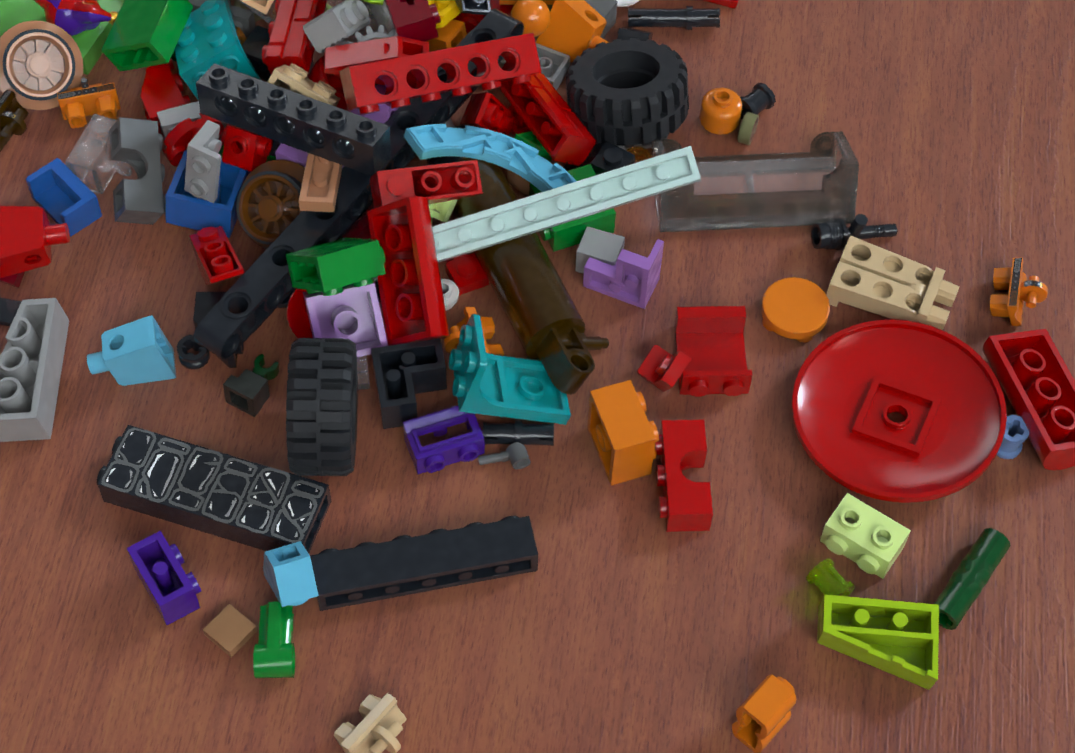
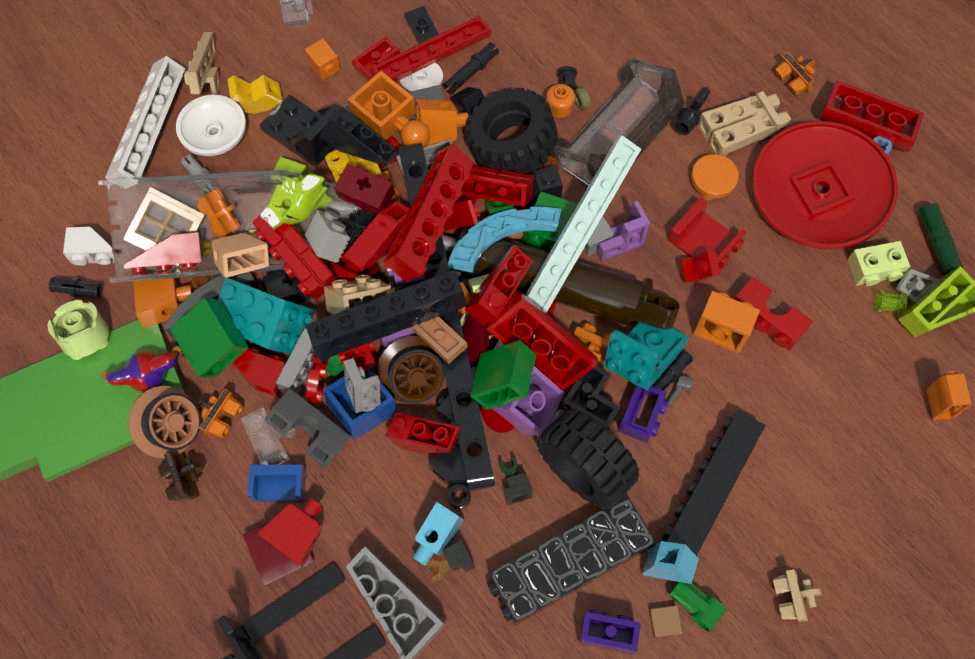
camera: 45 degrees left, 10 degrees up
(124, 393) = (456, 558): none -> pearl dark grey piece
(879, 585) = (915, 284): none -> light grey piece

